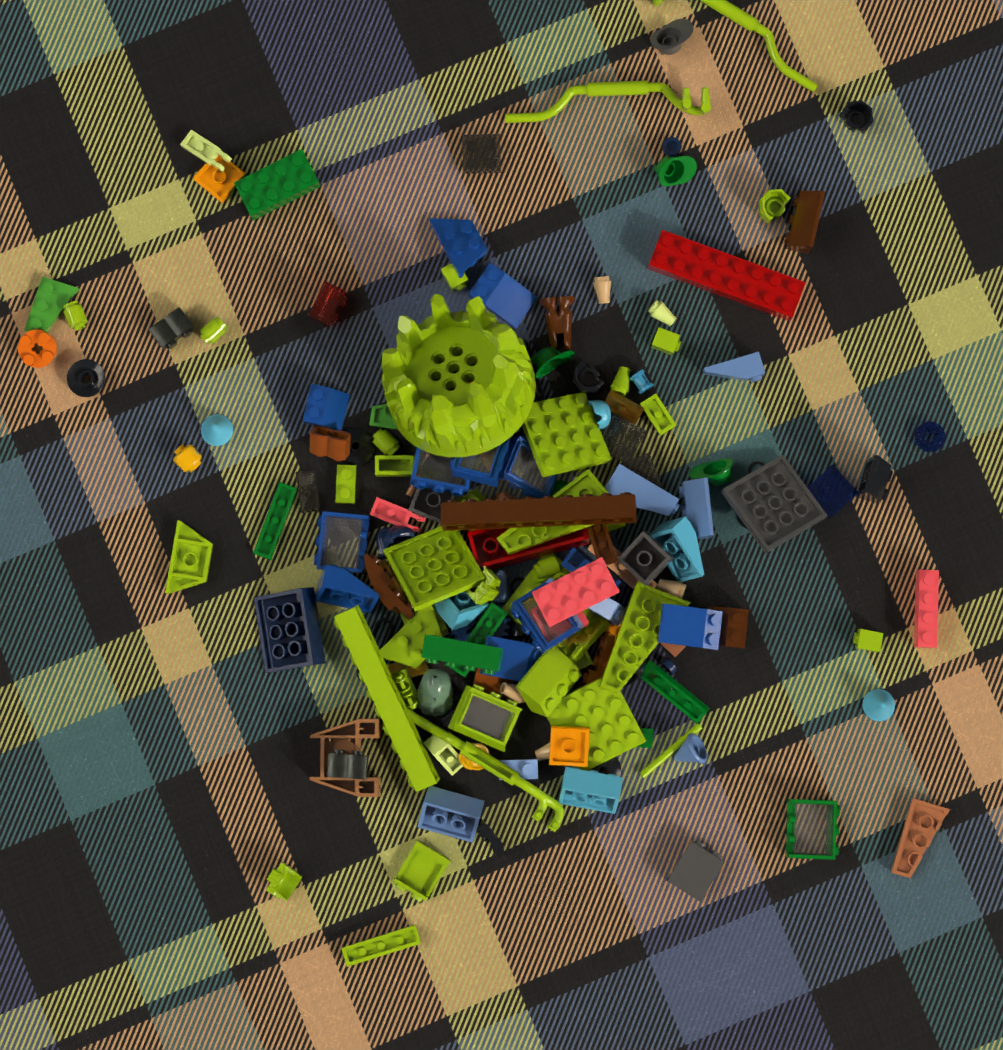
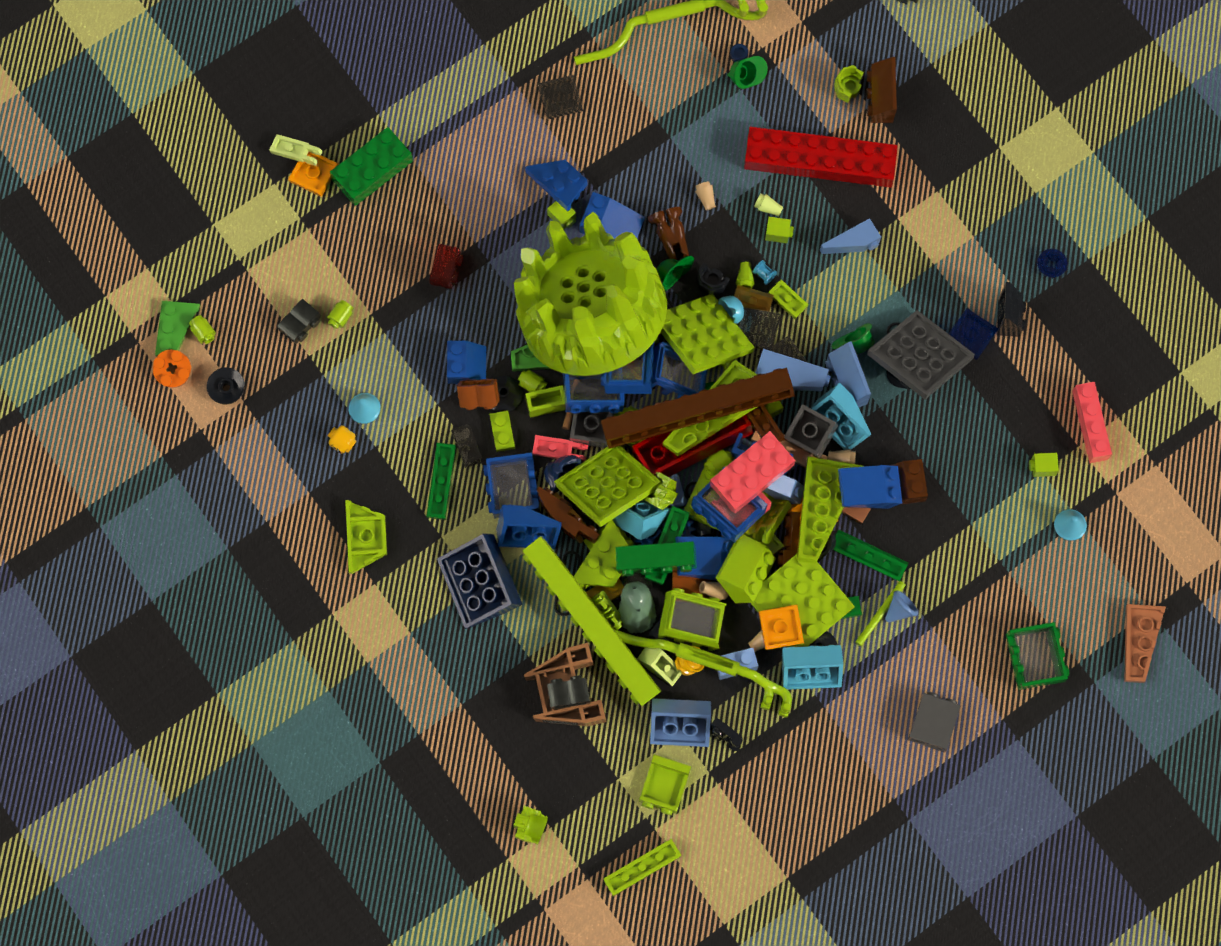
camera: 15 degrees left, 10 degrees down
(668, 665) = (857, 531): dark blue tile -> none

